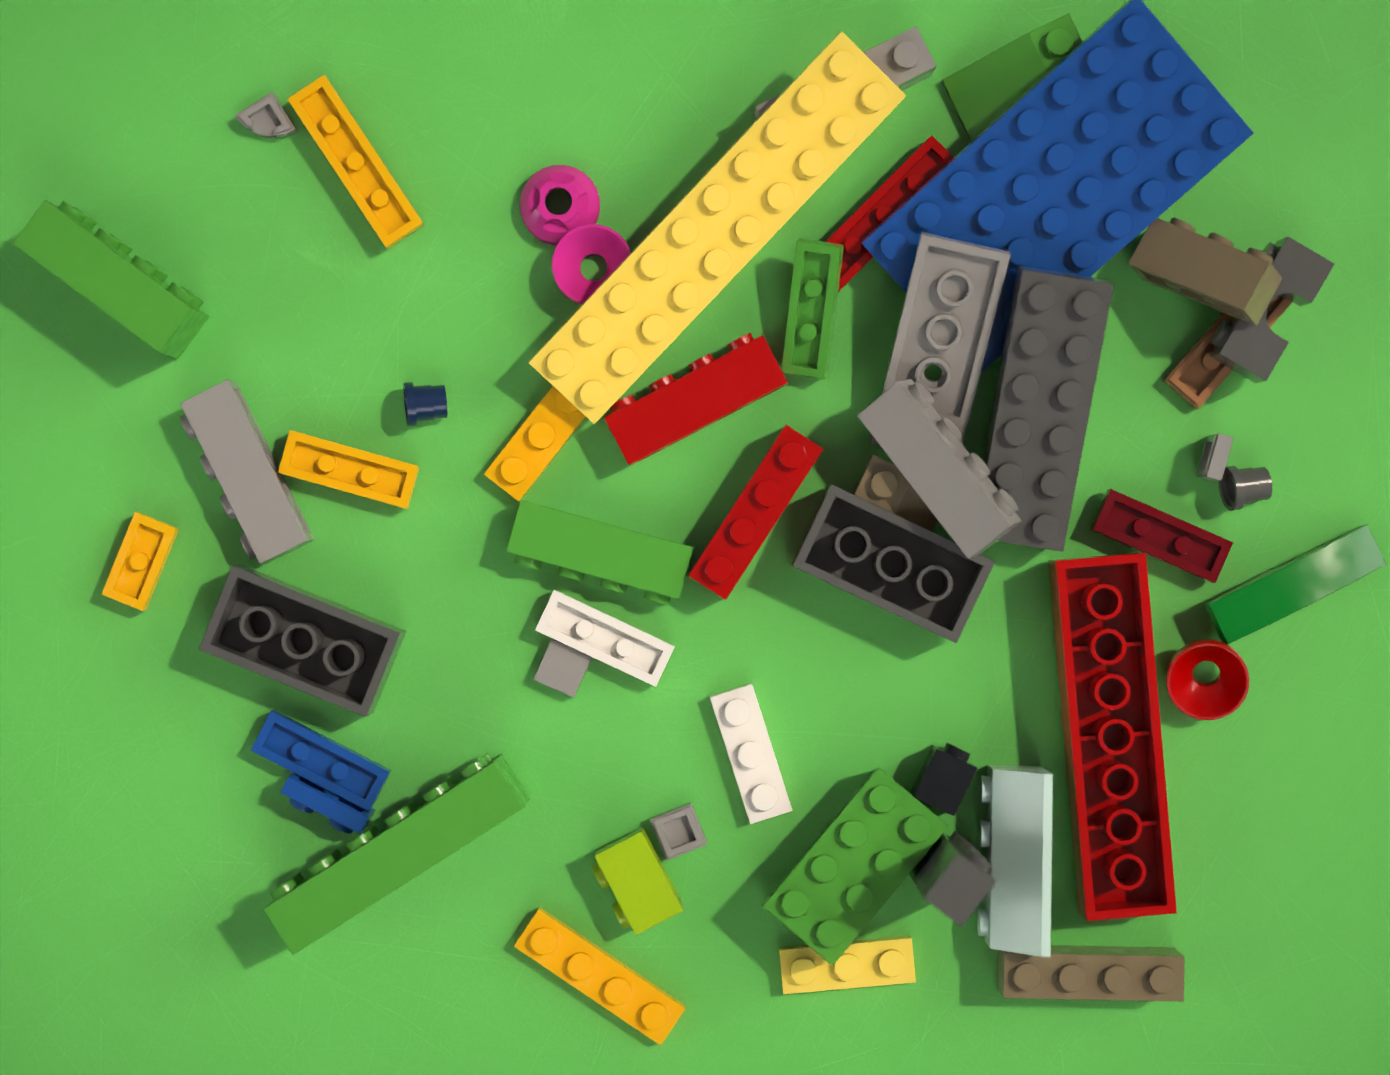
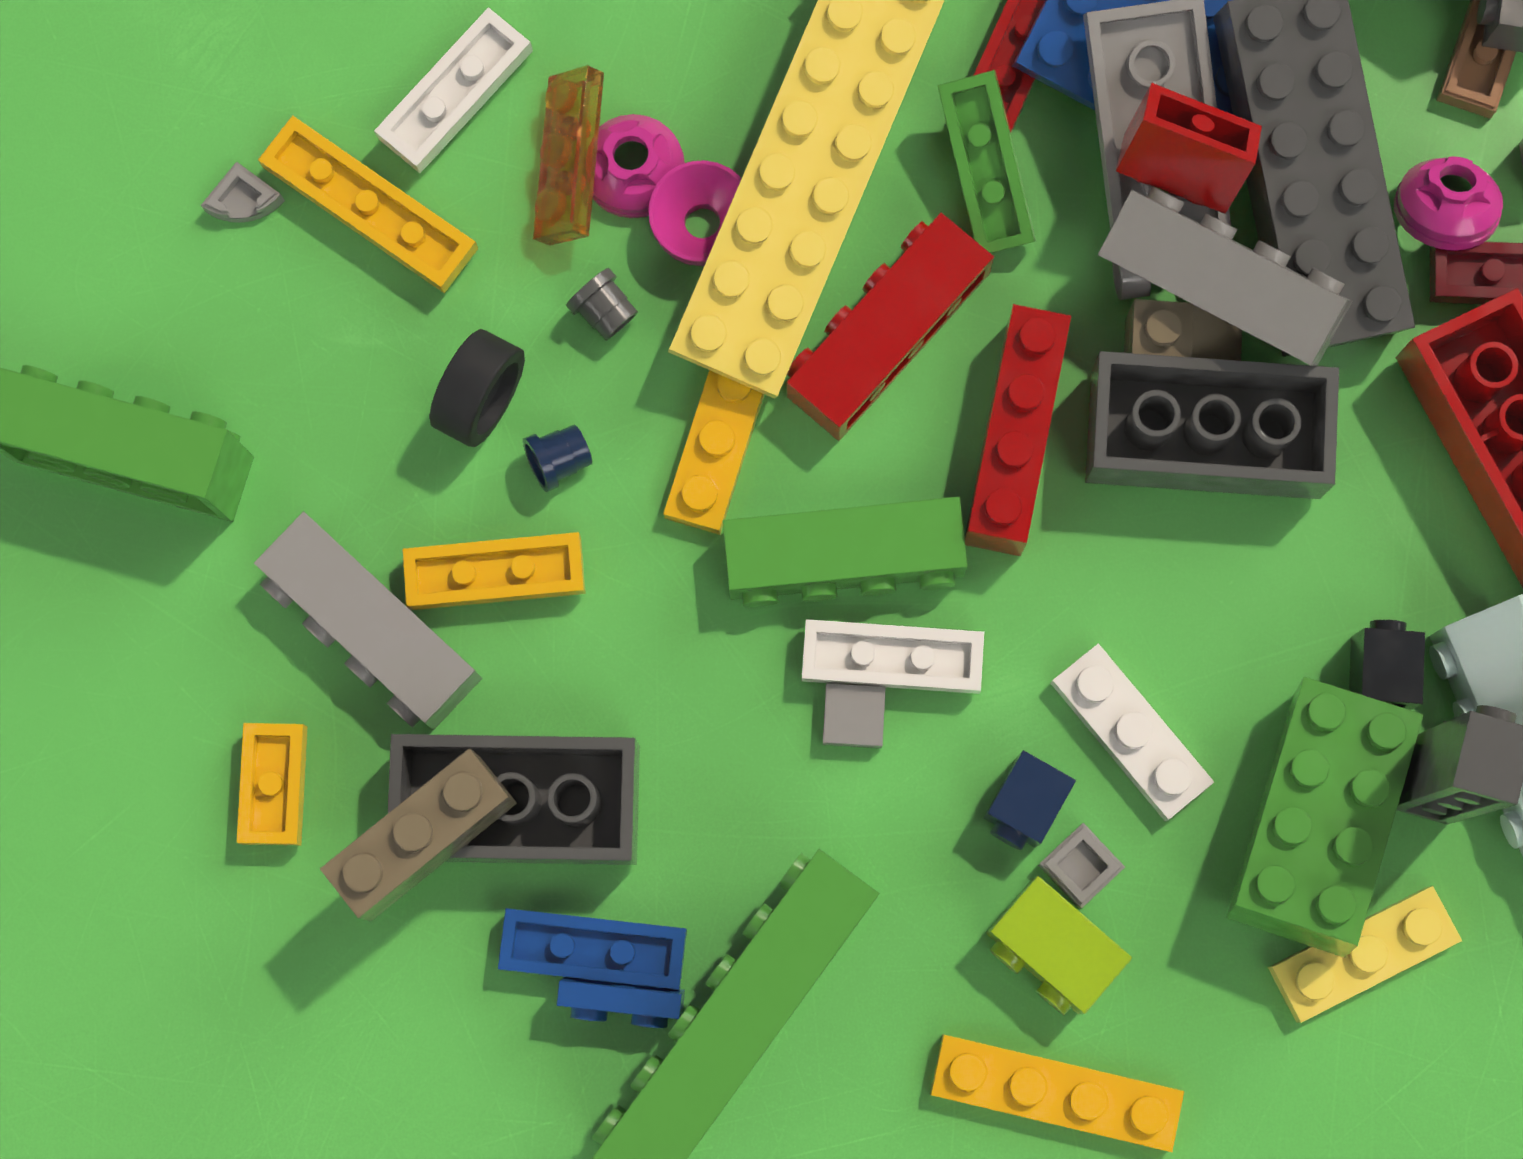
camera: 20 degrees left, 10 degrees down
(224, 648) = (418, 836): none -> dark tan brick
(383, 335) = (476, 387): none -> black tyre
(449, 98) = (454, 90): none -> white plate
(498, 304) = (603, 304): none -> dark grey piece
(514, 182) = (568, 155): none -> clear orange plate
(657, 775) = (1028, 801): none -> dark blue brick
(951, 365) = (1189, 148): none -> red brick
(1124, 479) = (1444, 216): none -> dark pink piece

